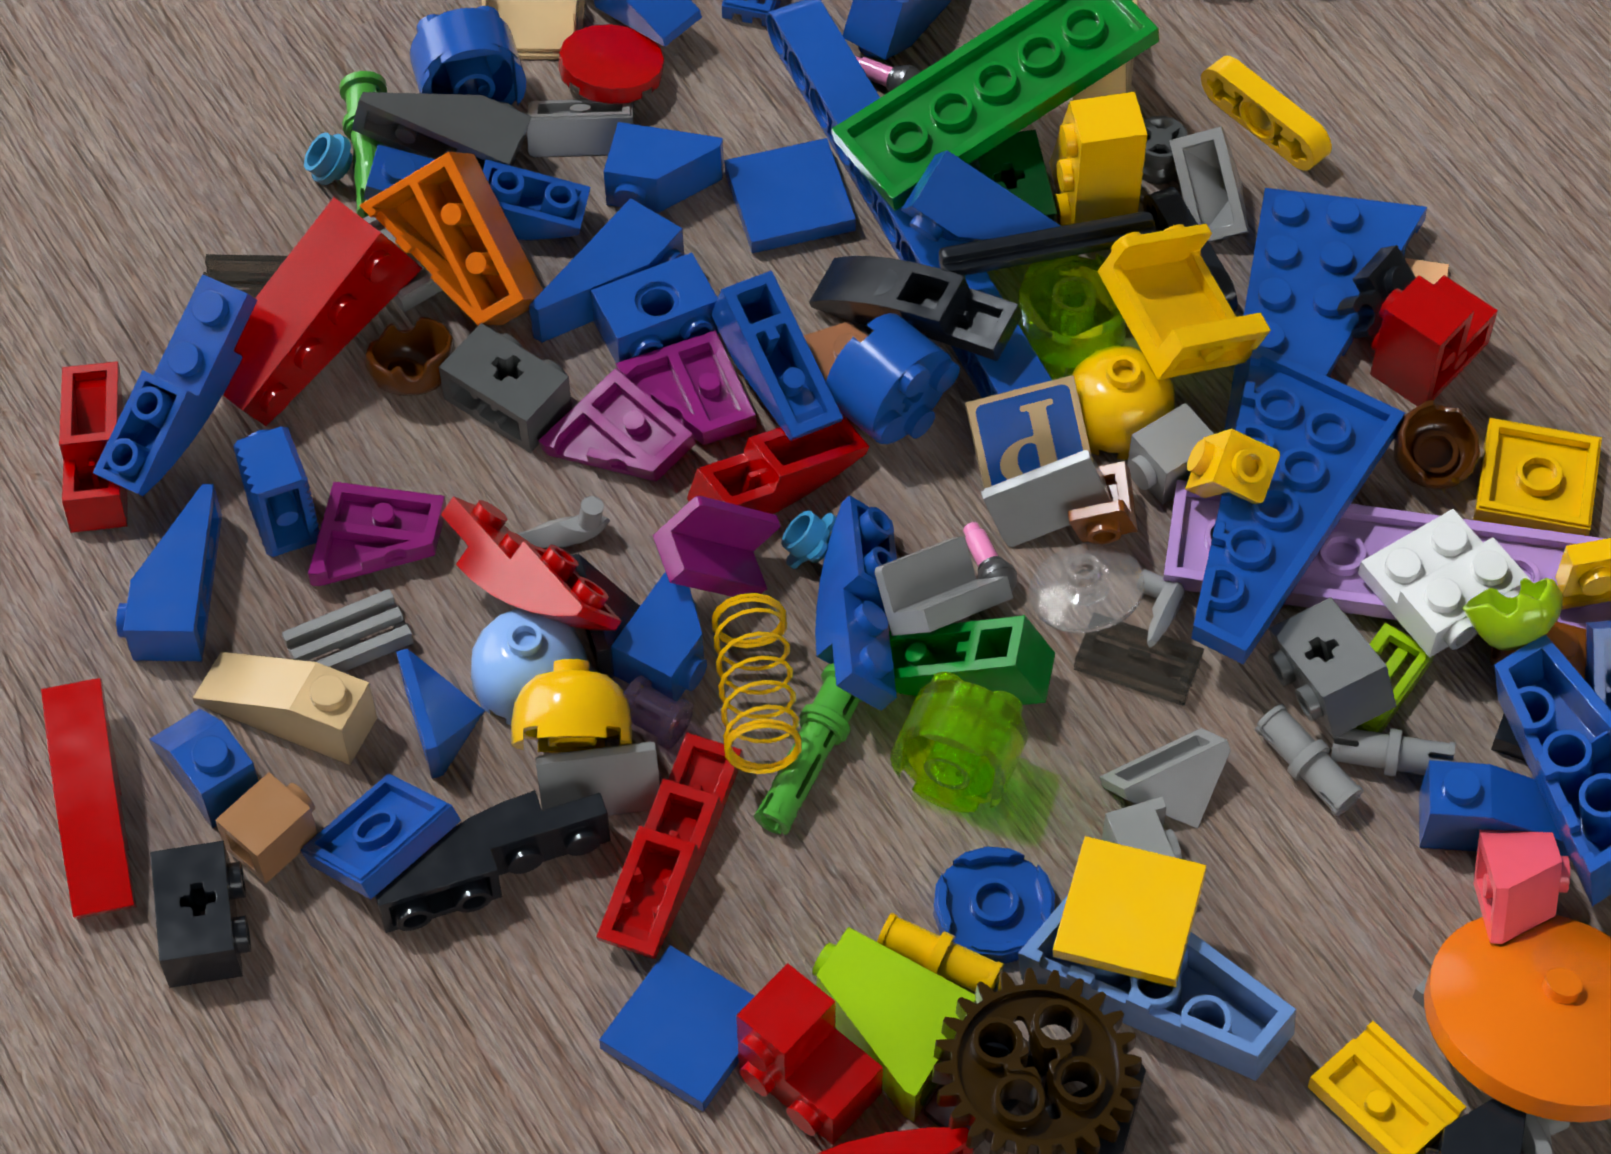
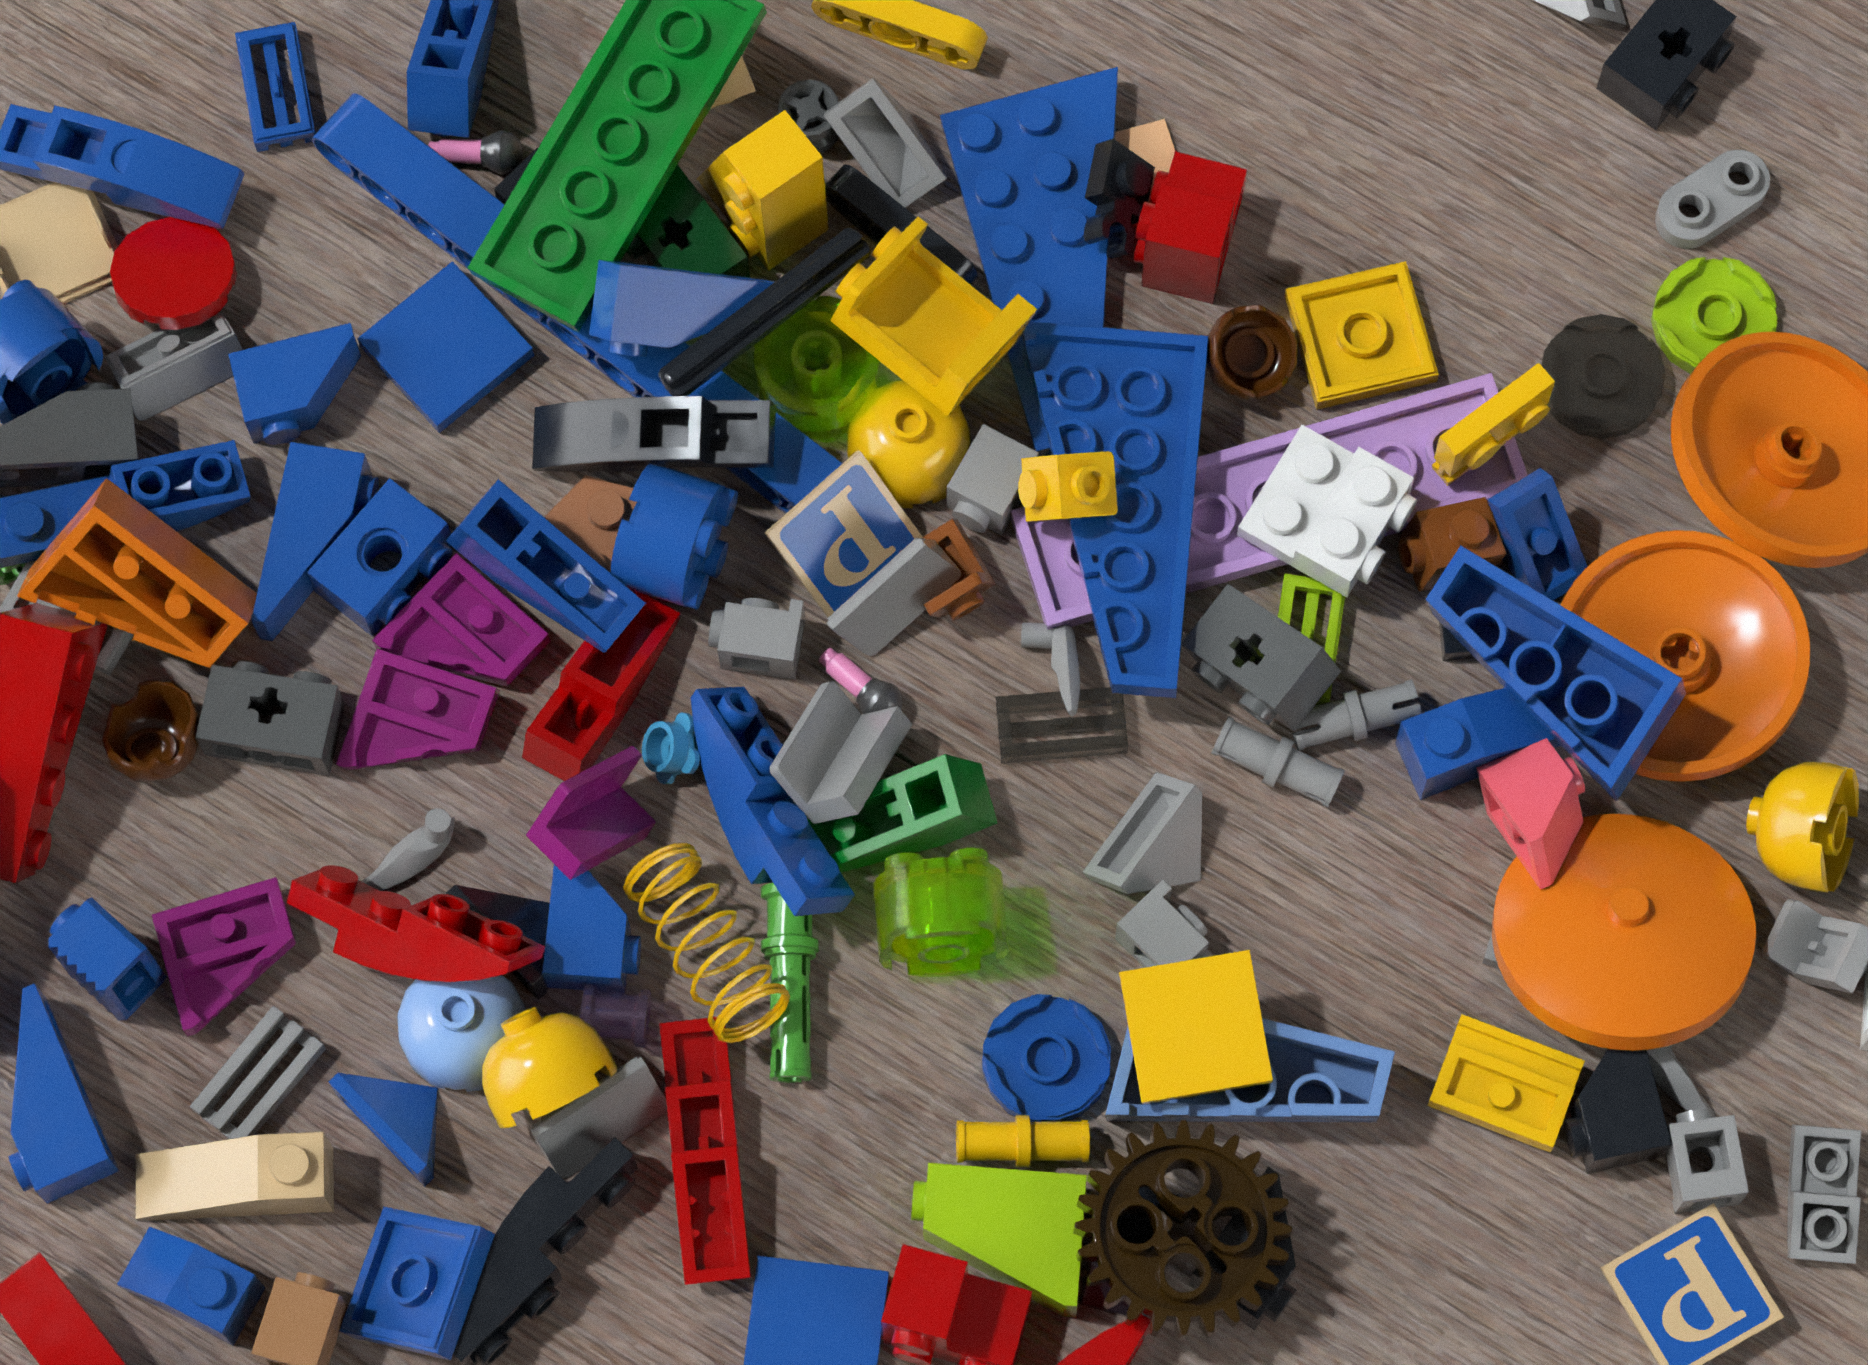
camera: 25 degrees left, 15 degrees up
(923, 488) = (758, 637): none -> light grey brick
(1087, 588) = (991, 689): clear dish -> none
(1518, 620) = (1423, 536): lime hair -> none

